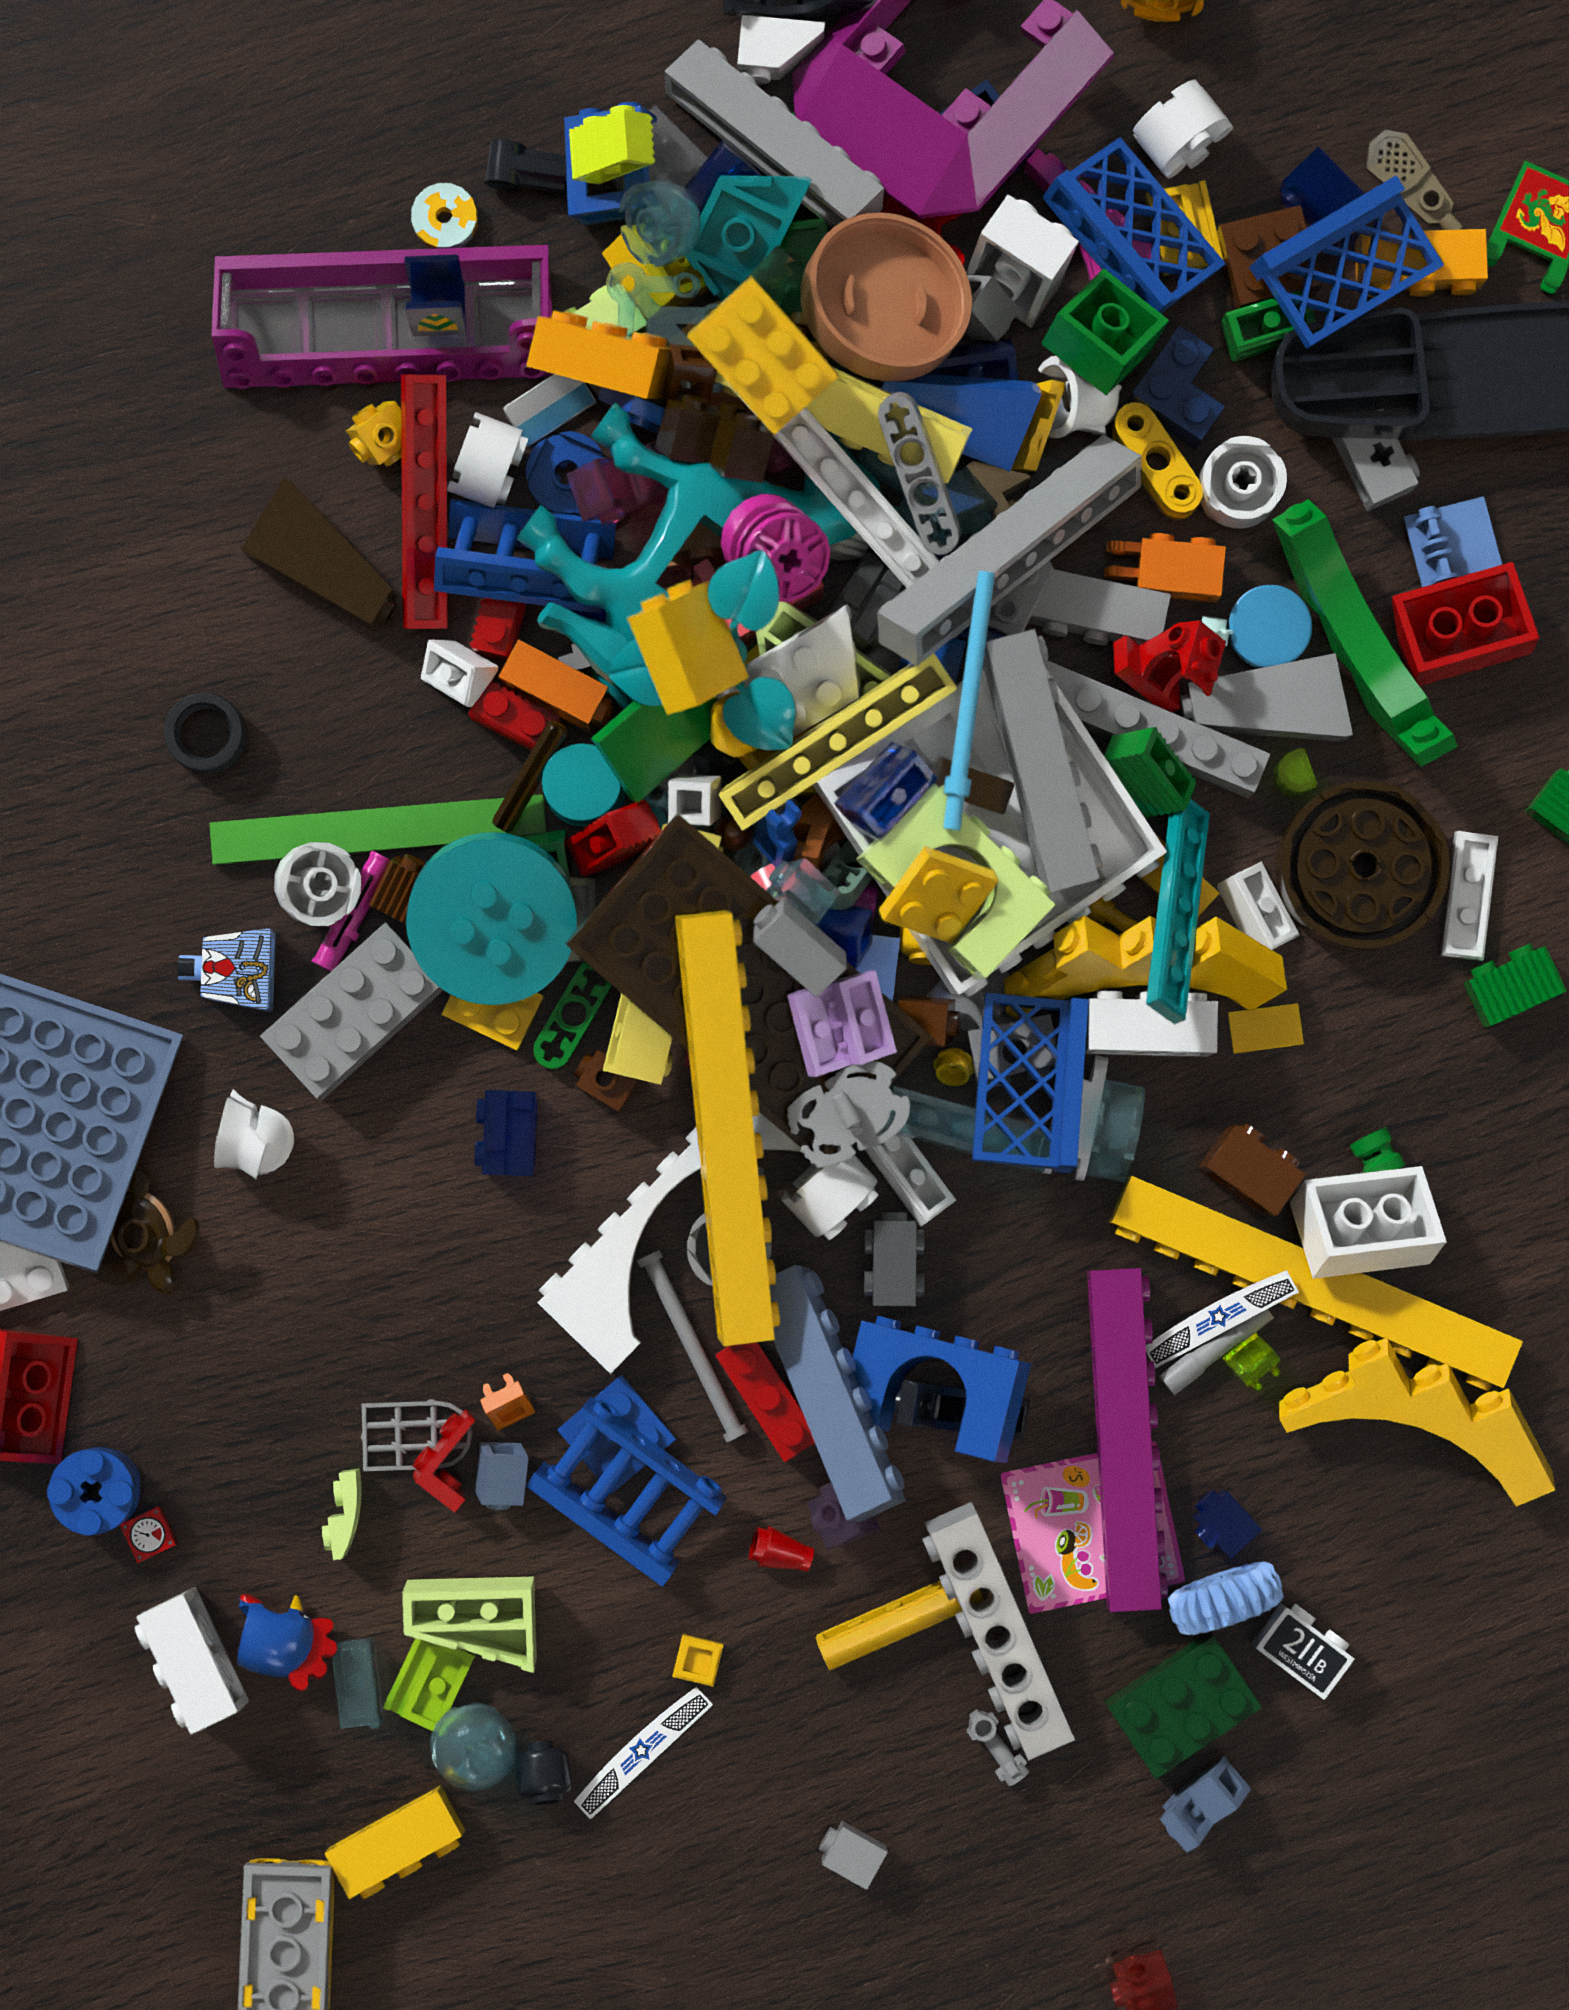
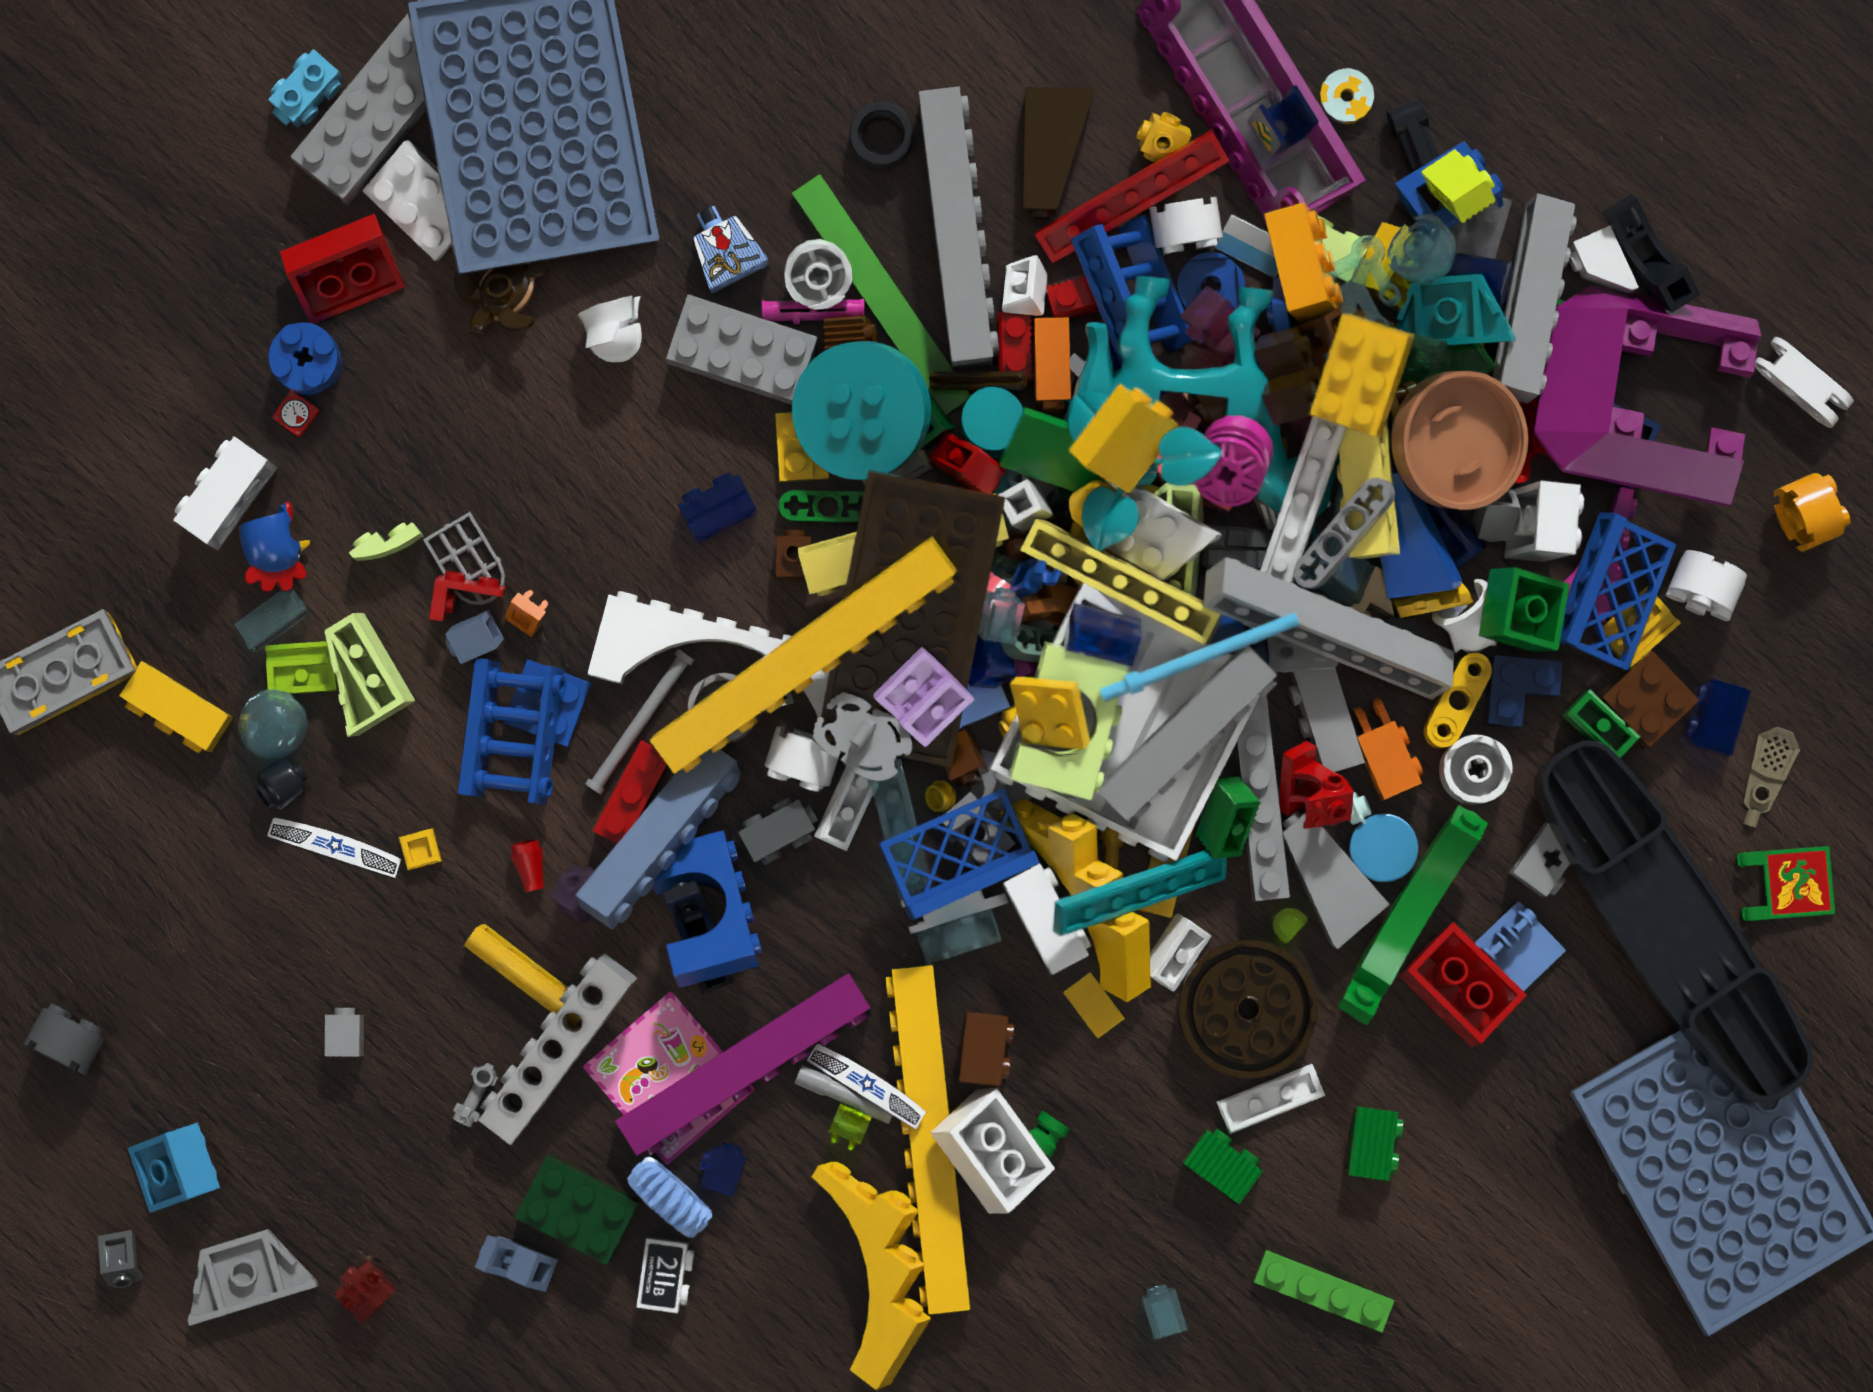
camera: 60 degrees right, 0 degrees up
(352, 708) = (955, 227): none -> light grey brick
(799, 946) = (959, 634): light grey brick -> none
(985, 789) = (1145, 703): dark brown sticker -> none
(1338, 228) = (1688, 730): blue fence -> none
(1460, 251) = (1710, 811): light orange brick -> none

